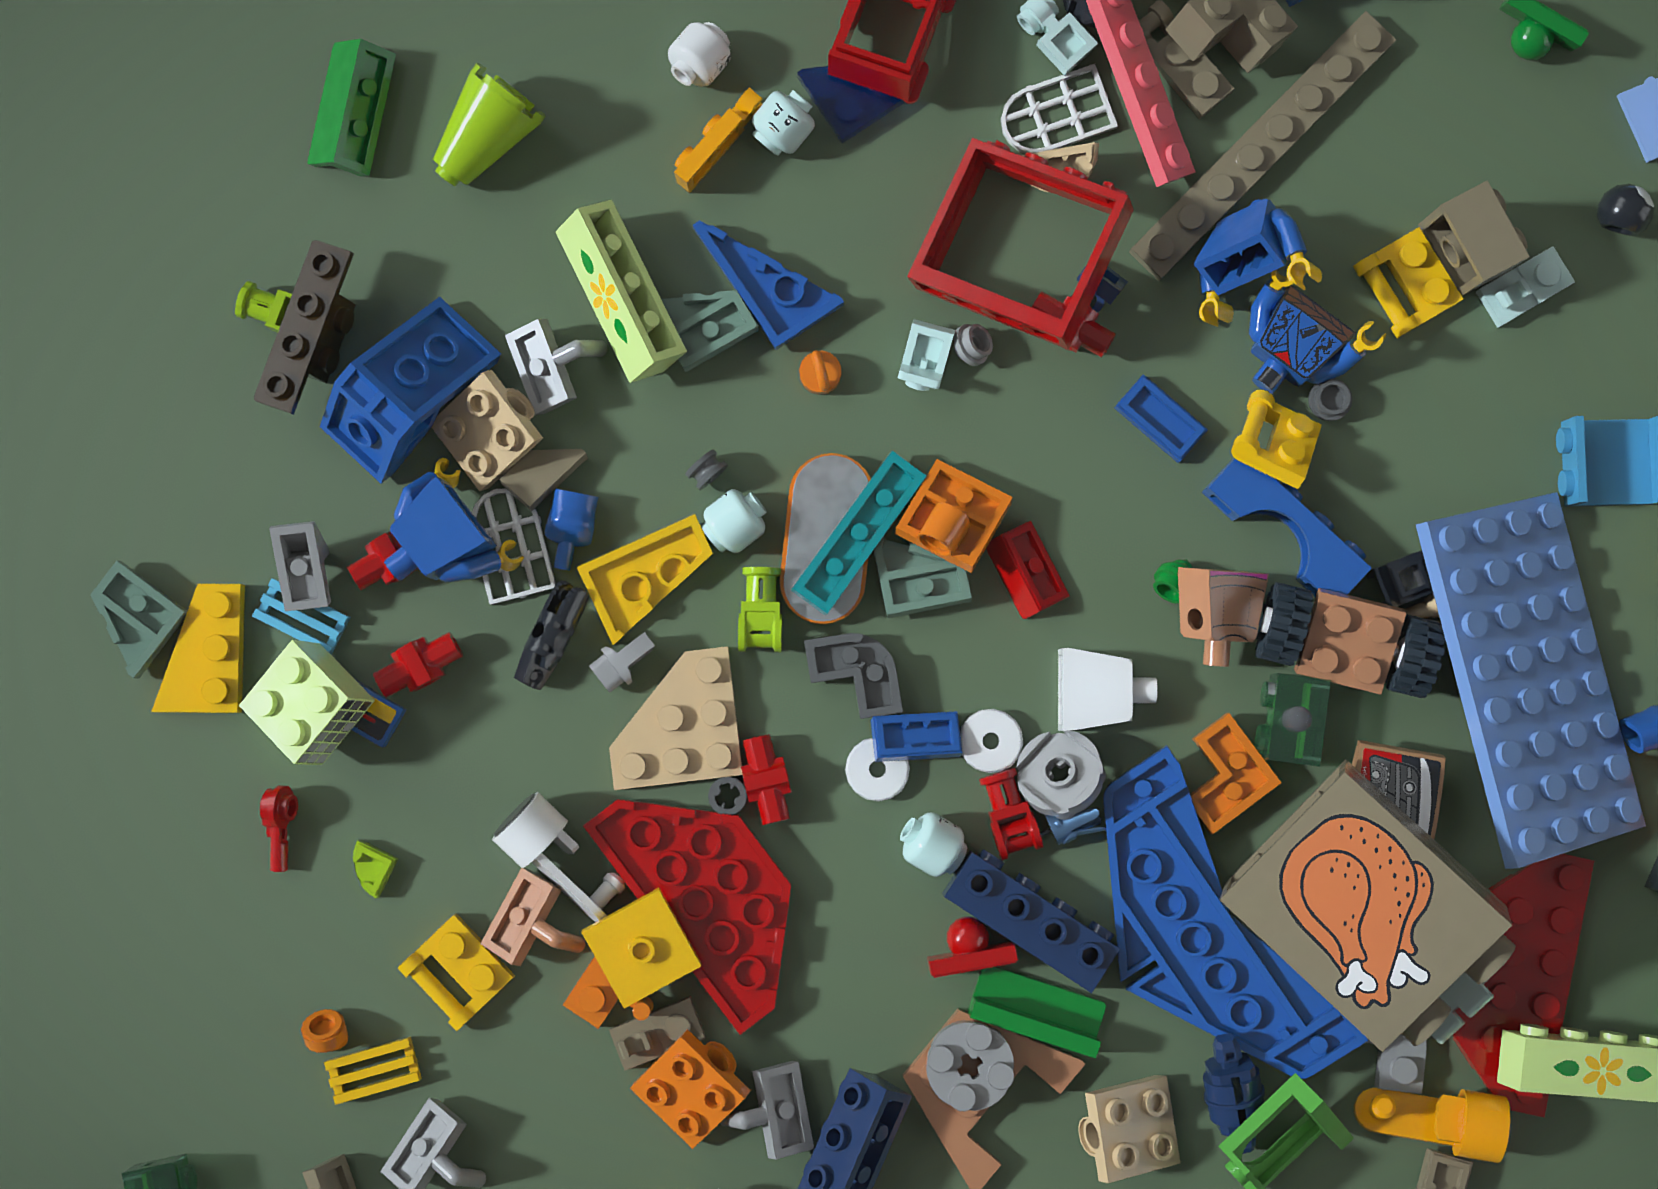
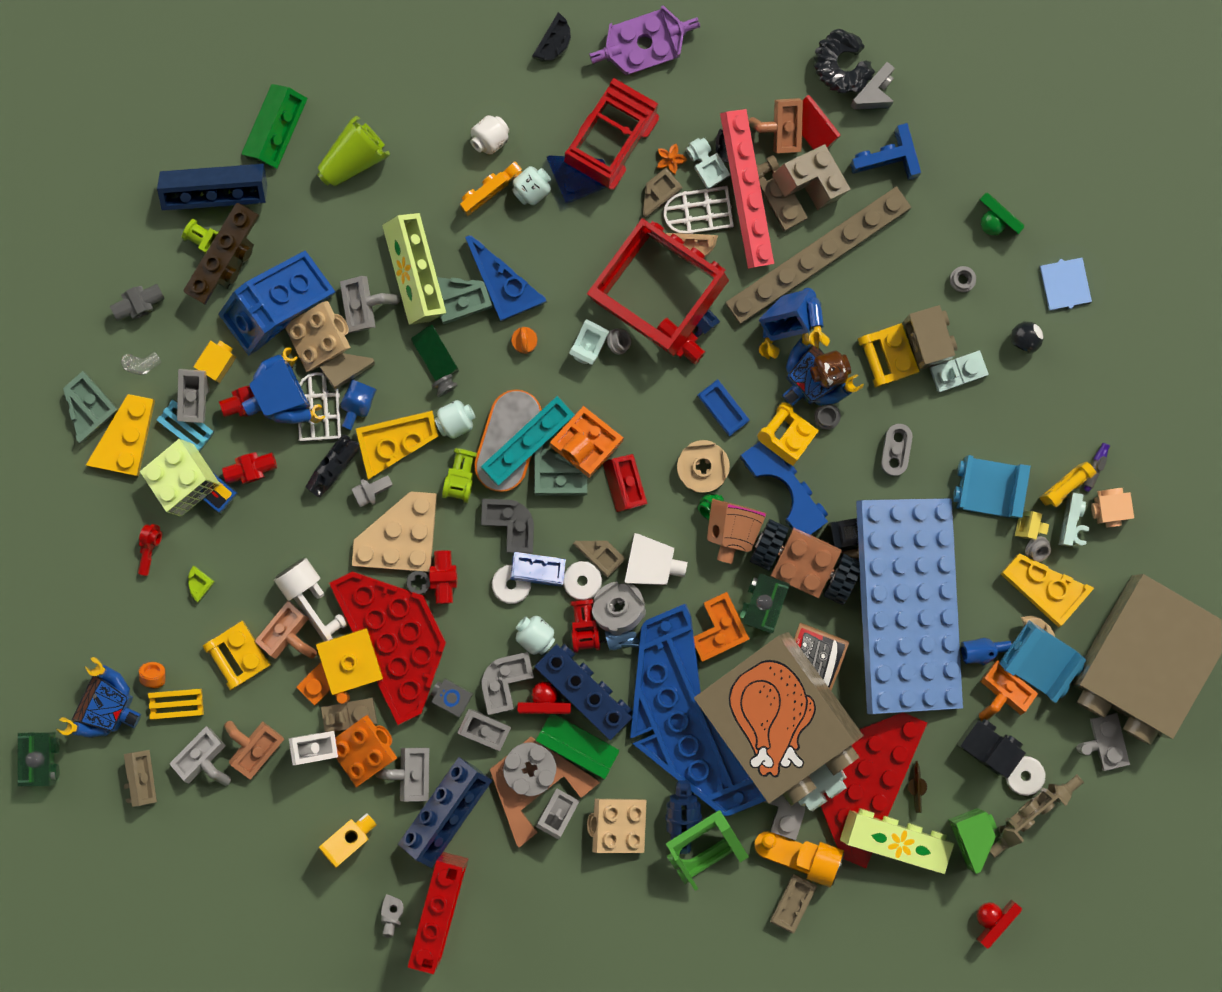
camera: 10 degrees right, 0 degrees up
(184, 433) = (137, 302): none -> dark grey axle
(208, 534) = (138, 365): none -> clear arm
(253, 1098) = (102, 705): none -> torso
(268, 223) = (212, 187): none -> dark blue brick
(329, 501) = (216, 360): none -> yellow brick
(514, 1121) = (253, 750): none -> nougat plate
(609, 1102) = (313, 747): none -> white slope
(680, 421) = (434, 353): none -> dark green slope
(818, 972) = (451, 697): none -> dark grey brick
(882, 1015) = (484, 729): none -> light grey slope
(886, 928) = (497, 679): none -> light grey plate
(988, 93) = (659, 191): none -> dark tan tile
(996, 38) = (671, 159): none -> orange plant
(1013, 693) = (601, 554): none -> dark tan tile
(1027, 1130) = (557, 814): none -> light grey slope
(1160, 497) = (691, 457): none -> tan plate
(1330, 319) = (830, 369): none -> reddish brown head
(1453, 432) = (896, 450): none -> light grey plate
(1510, 130) = (968, 273): none -> light grey plate
(1598, 968) = (917, 787): none -> dark brown piece

